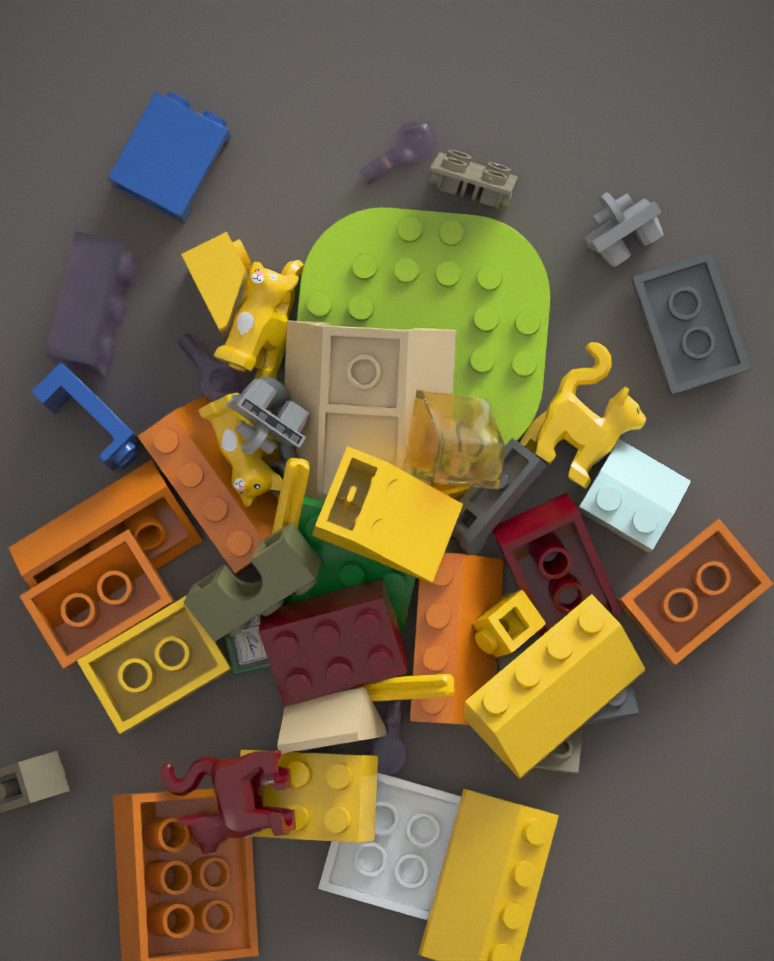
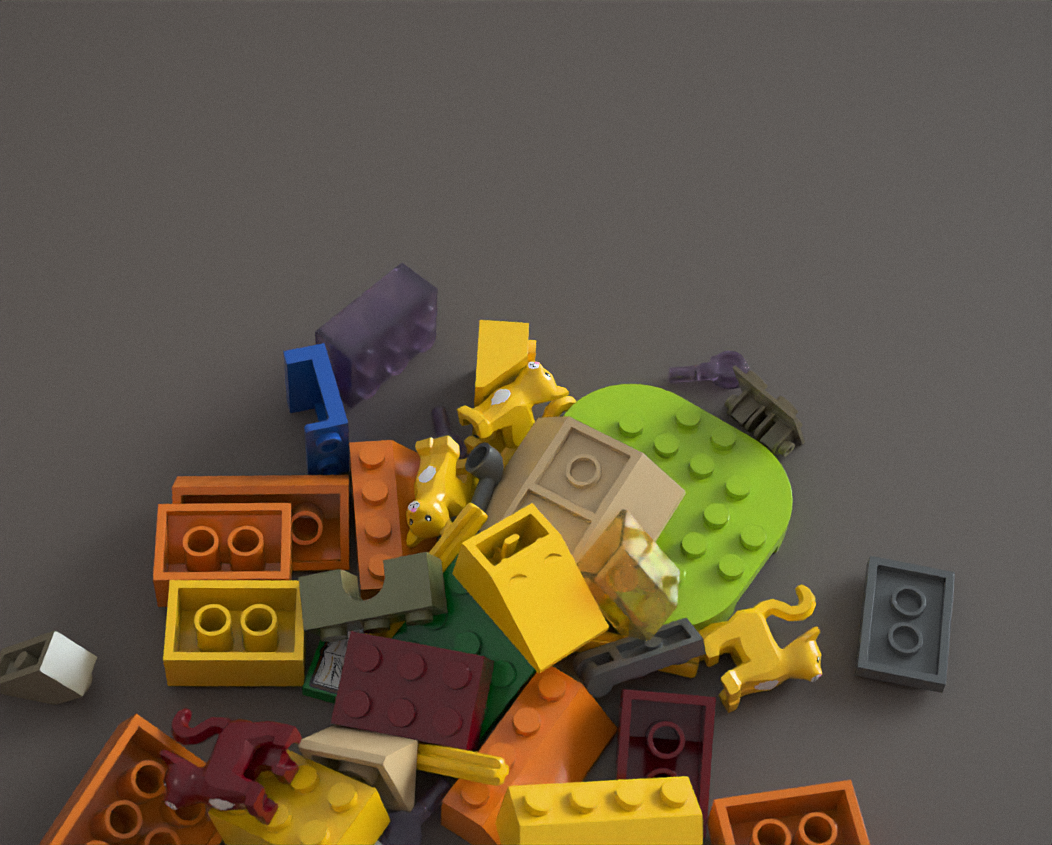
camera: 20 degrees right, 30 degrees down
(169, 155) = (513, 274): blue panel -> none
(253, 406) = (466, 469): light grey hips -> none
(507, 624) = (587, 764): yellow brick -> none
(634, 496) = (770, 737): light aqua slope -> none
(638, 218) = (863, 518): light grey hips -> none

